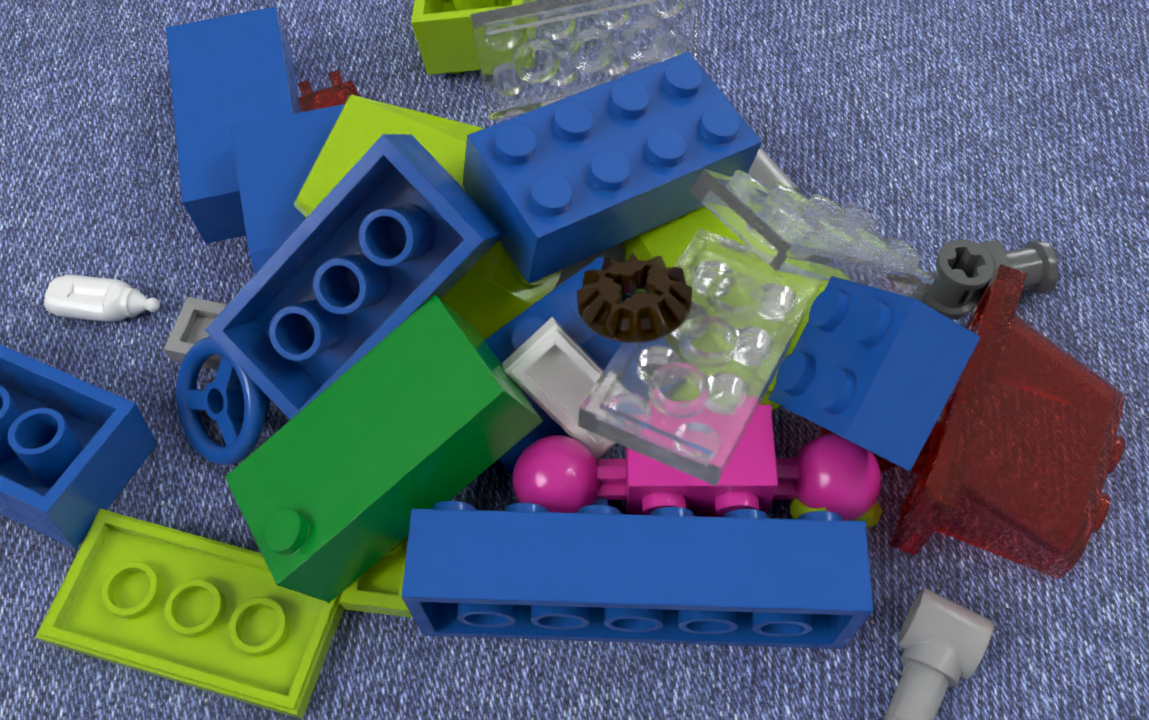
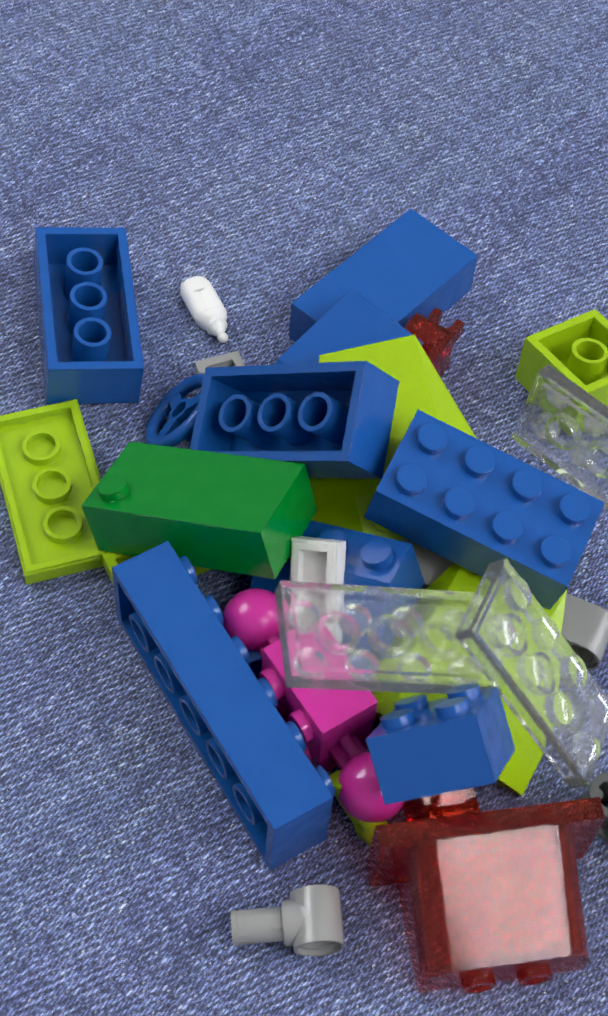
camera: 50 degrees right, 5 degrees down
(644, 314) = (370, 581): dark brown gear -> none

